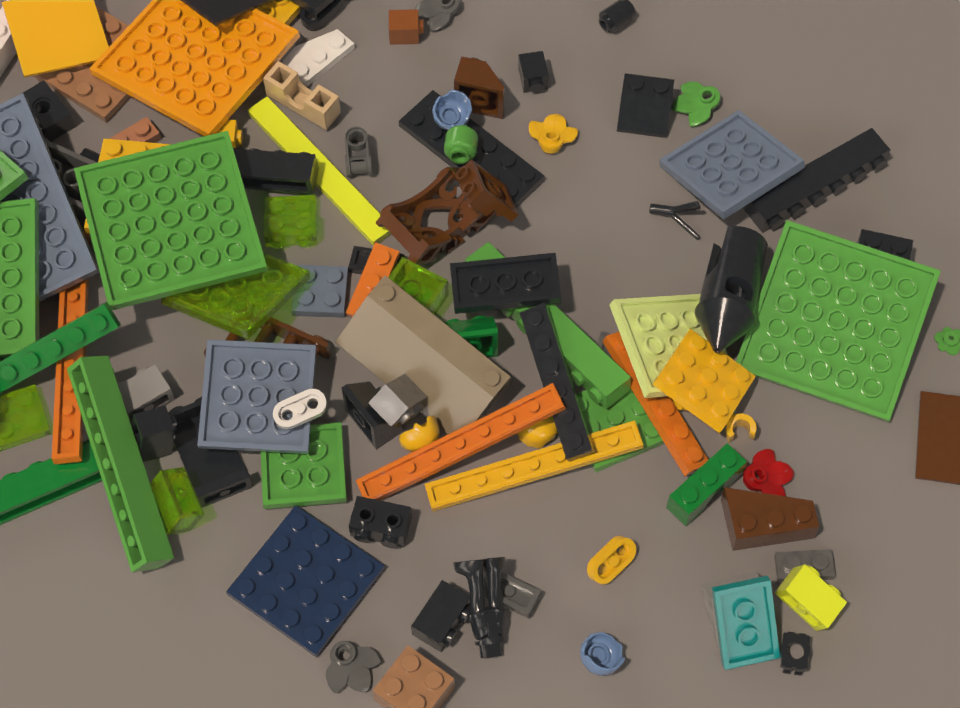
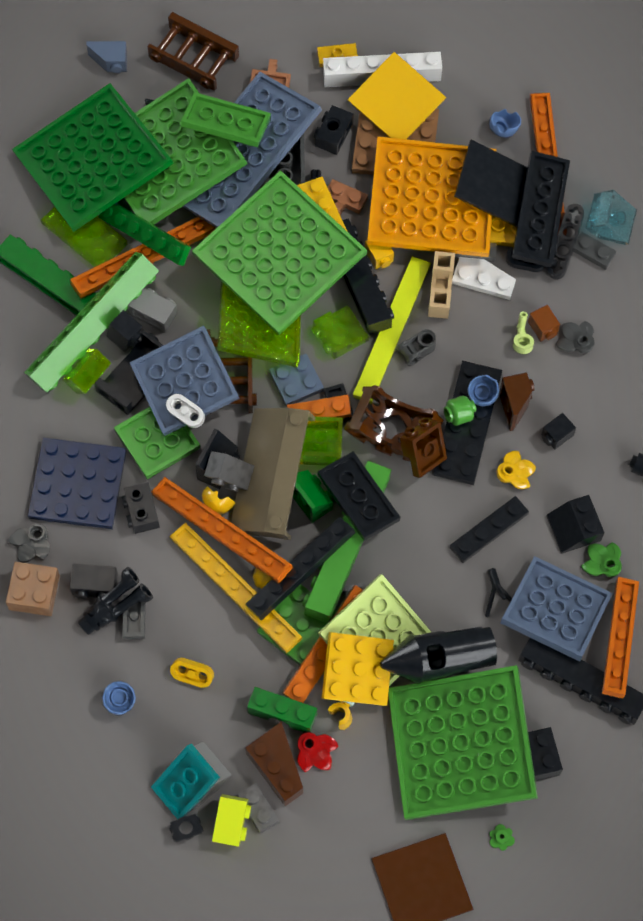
camera: 60 degrees right, 5 degrees up
(414, 55) = (523, 342): none -> yellowish green plate
(604, 189) = (489, 529): none -> black plate
(795, 122) = (620, 638): none -> orange plate

